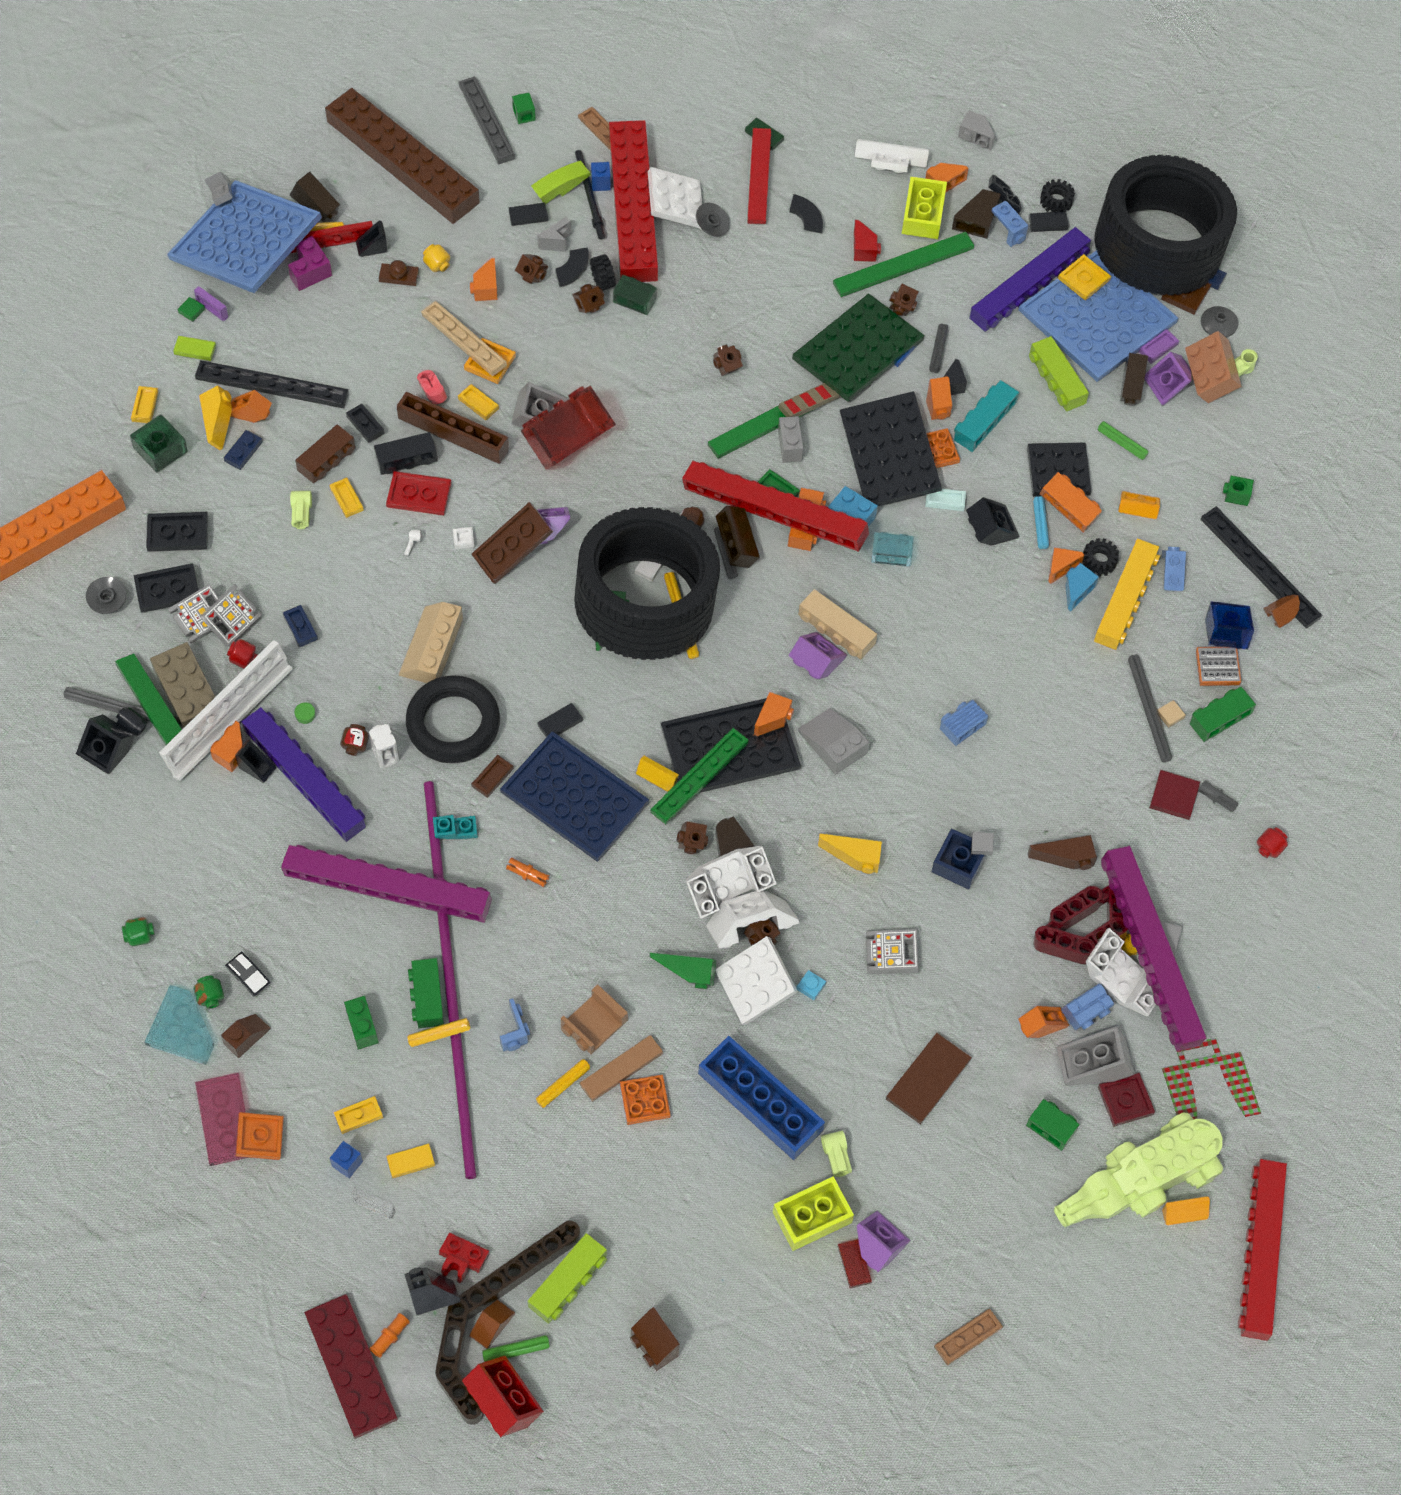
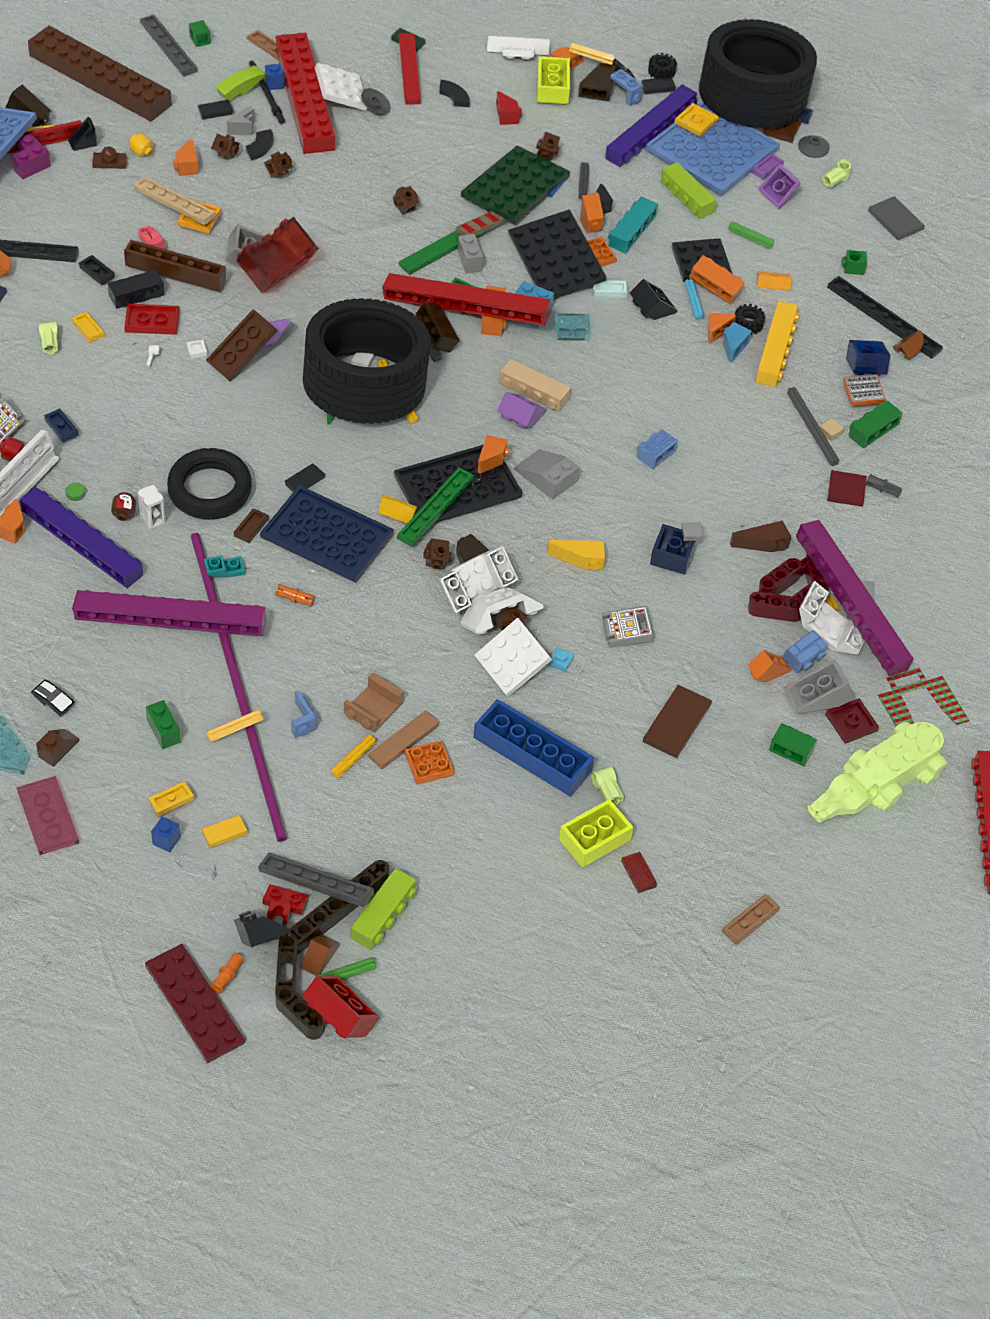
camera: 10 degrees left, 10 degrees down
(208, 992) = (19, 713): green head -> none
(254, 762) = (34, 531): black slope -> none
(259, 1136) = (82, 824): orange tile -> none
(325, 454) = (64, 294): reddish brown brick -> none
(426, 993) = (218, 695): green brick -> none
(432, 642) = (181, 427): tan slope -> none
(478, 402) = (193, 248): yellow tile -> none
(499, 1236) = (316, 879): none -> dark grey tile
(603, 272) = (288, 142): black tyre -> none
(635, 294) = (317, 159): clear green brick -> none
(654, 1340) = (472, 947): reddish brown slope -> none
(692, 969) = (453, 654): green slope -> none
(879, 1241) = (658, 851): medium lavender slope -> none
(903, 264) = (542, 123): green tile -> none
(974, 176) = (591, 53): none -> yellow axle
(976, 130) = (586, 24): light grey slope -> none
(1133, 378) = (751, 187): dark brown slope -> none
(1174, 568) = (813, 322): medium blue bracket -> none
(1186, 1210) = (921, 799): light orange slope -> none
(1213, 367) = (816, 174): nougat brick -> none
(1272, 842) = (937, 514): red head -> none
(1299, 431) = (896, 218): none -> dark grey tile

